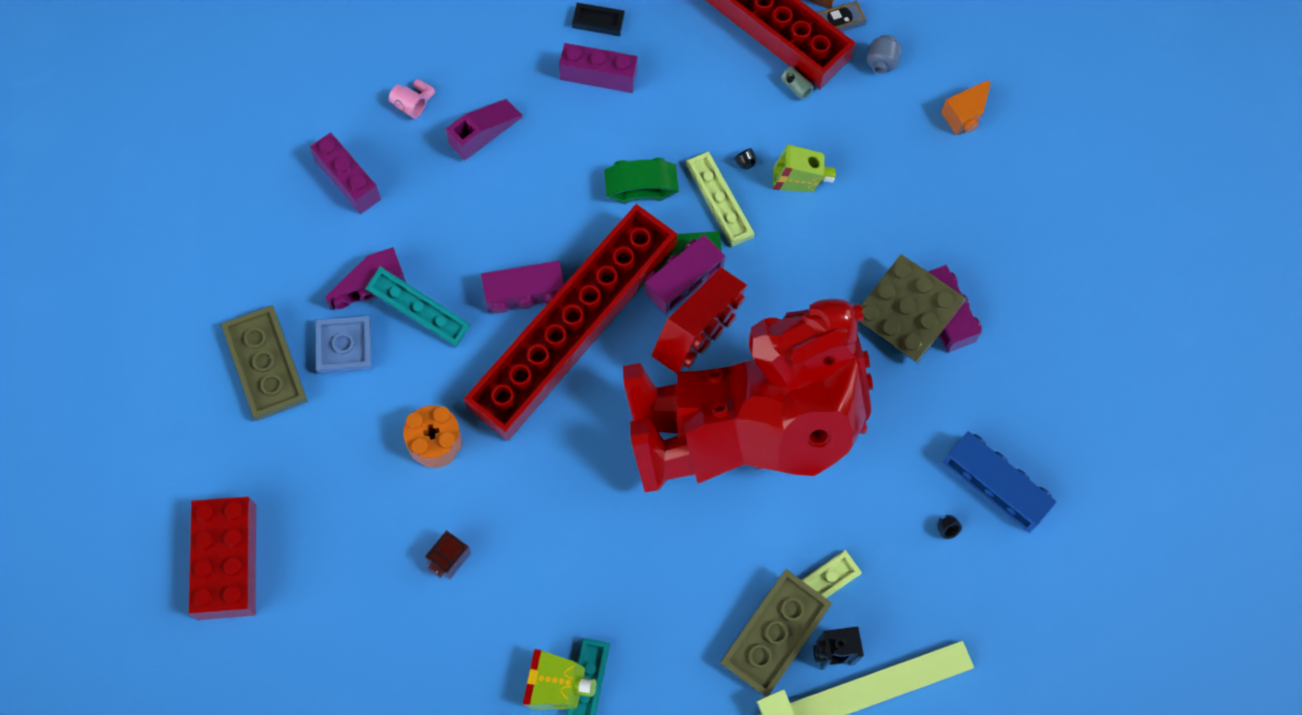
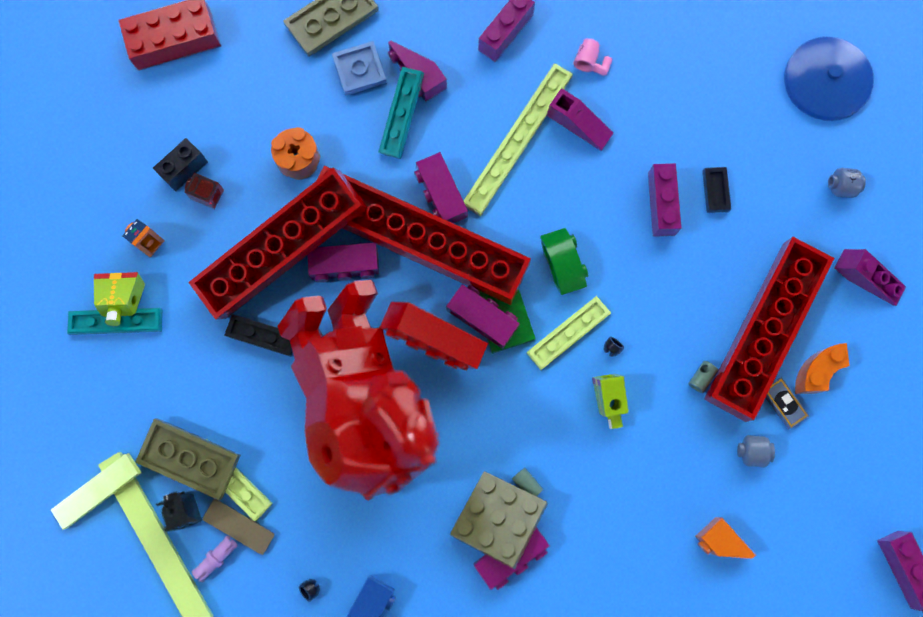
camera: 80 degrees right, 10 degrees up
(406, 576) = (180, 164): none -> black hinge
(482, 195) = (516, 140): none -> yellowish green tile
(487, 638) = (143, 237): none -> orange slope
(549, 467) = (278, 244): none -> red brick
(581, 411) = (343, 262): none -> magenta brick
(645, 524) = (257, 335): none -> black plate
(864, 592) = (238, 526): none -> dark tan piece
(871, 277) = (526, 482): none -> sand green piece
(897, 625) = (214, 559): none -> lavender pin

